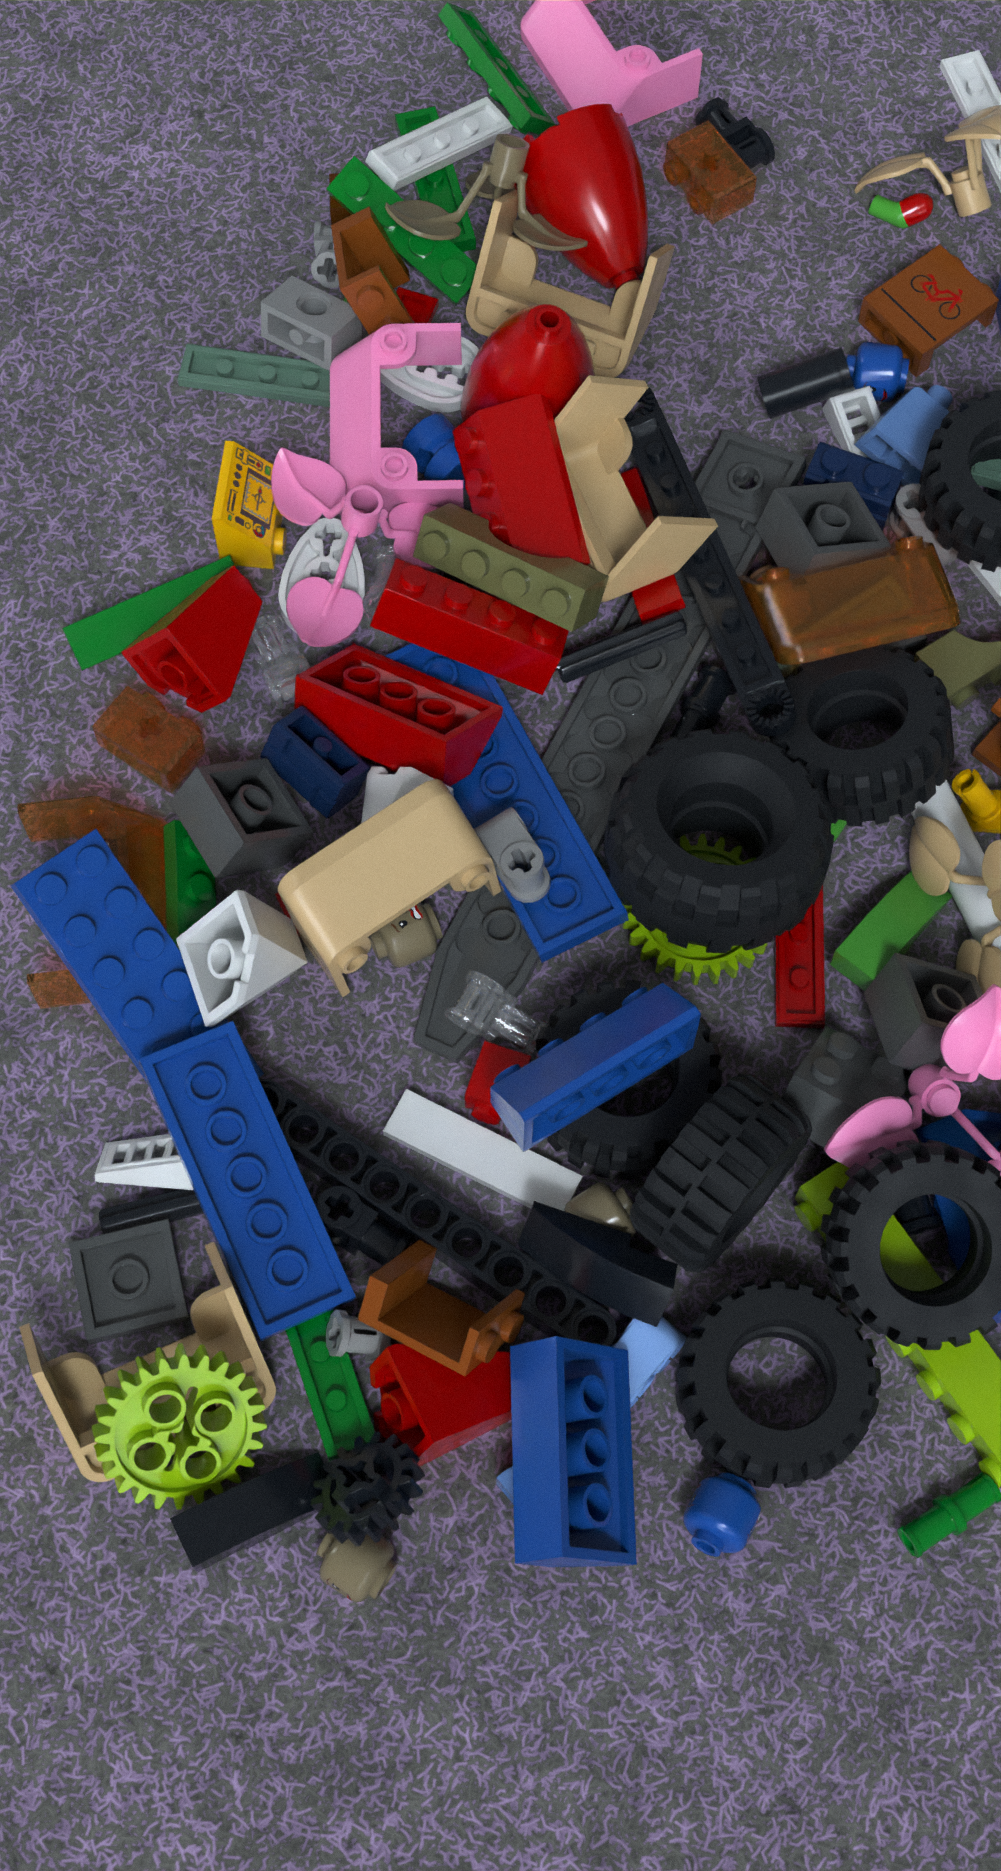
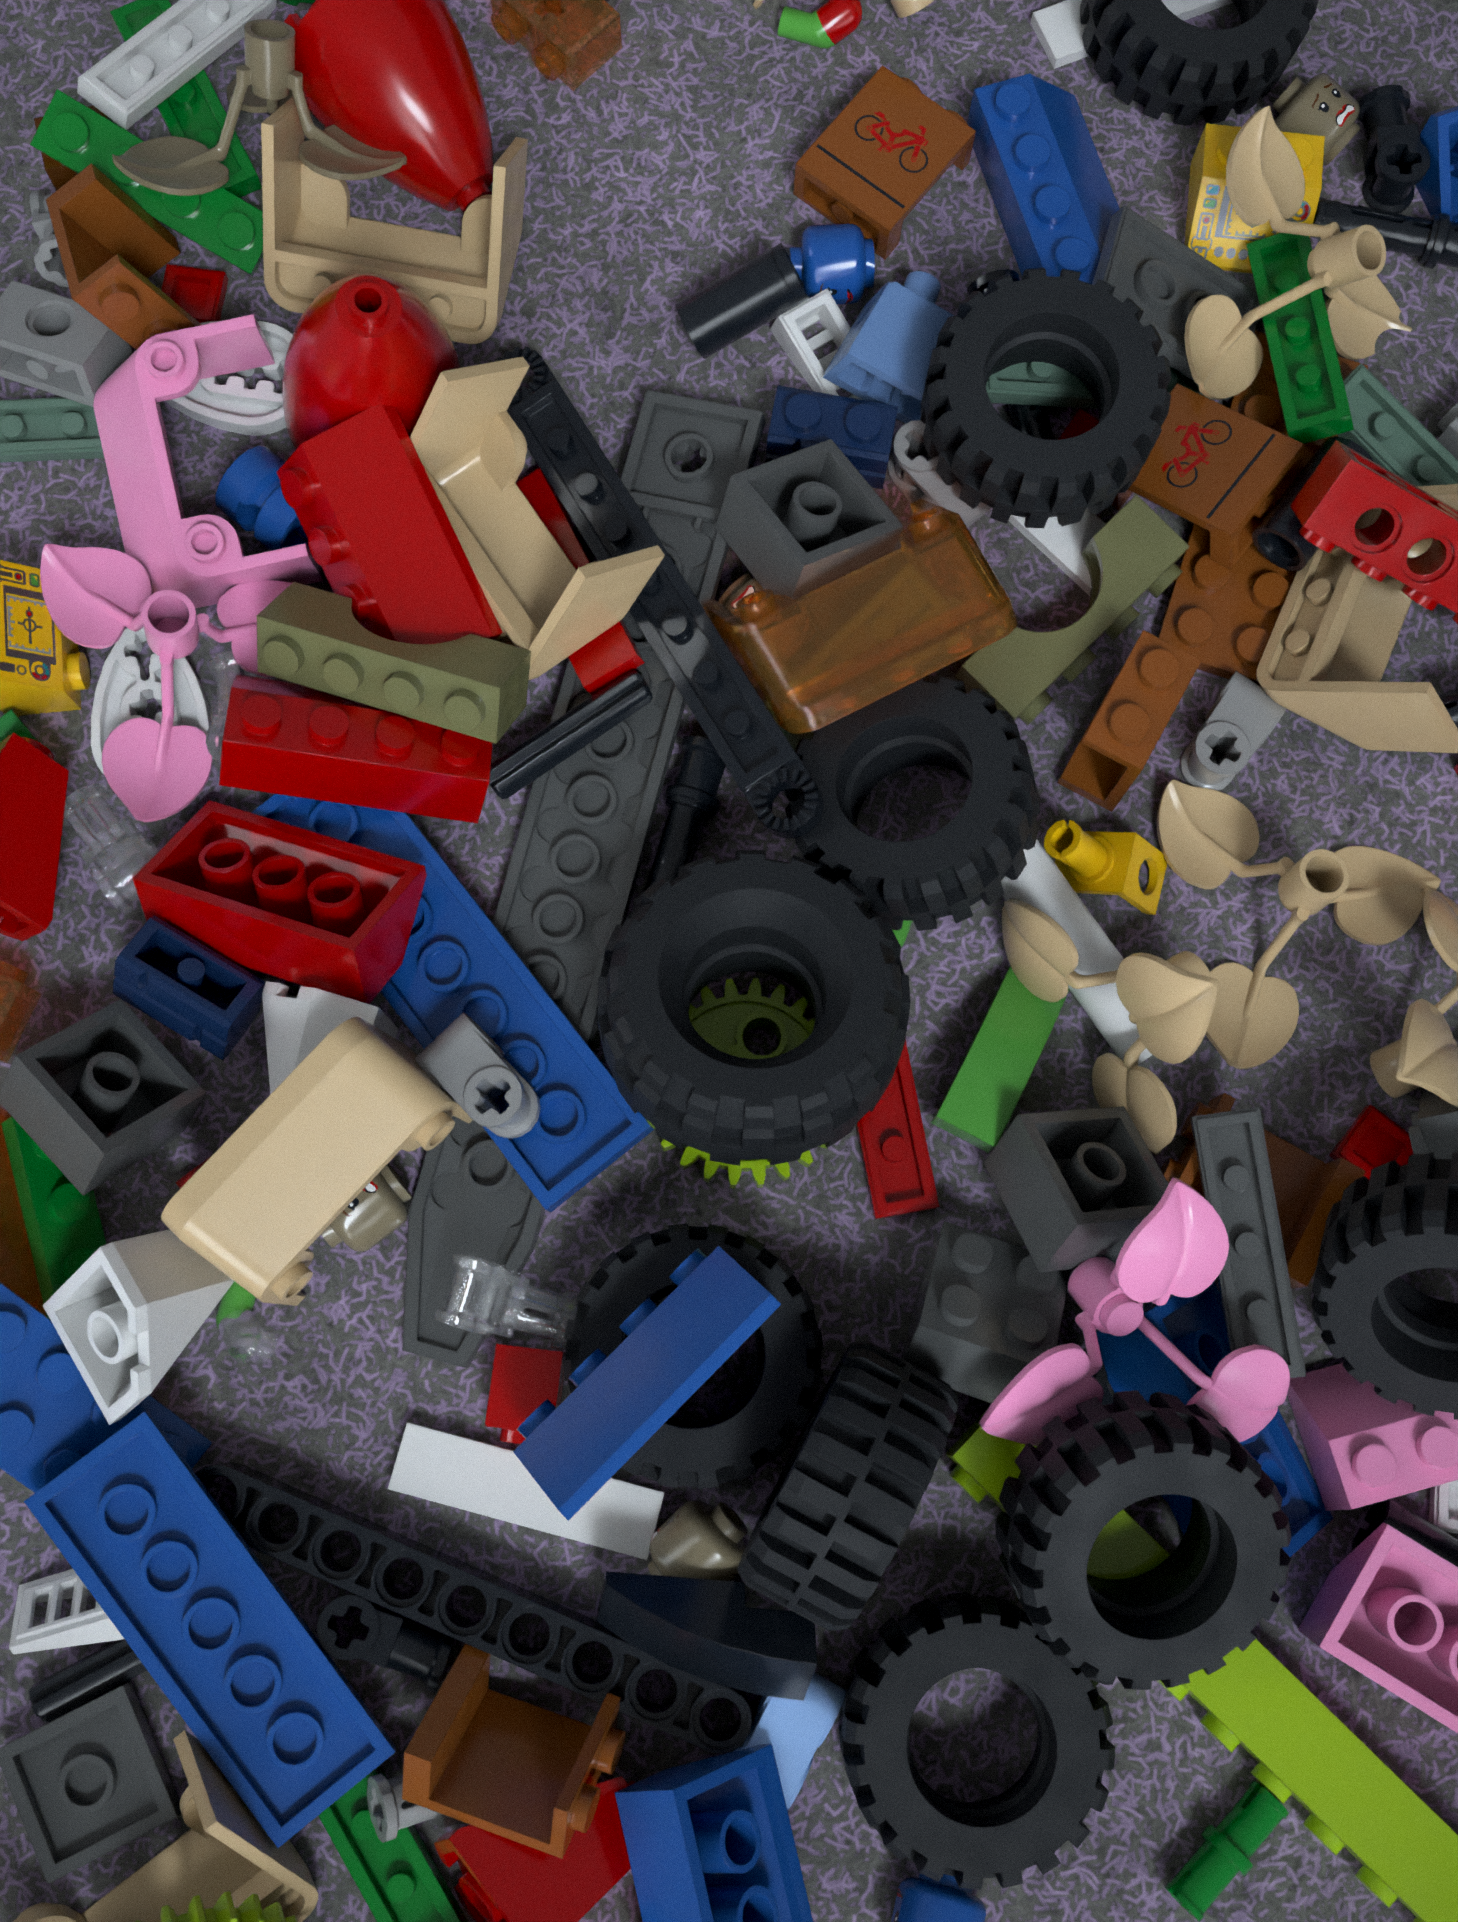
camera: 15 degrees left, 10 degrees up
(299, 998) = (241, 1330): none -> clear arm

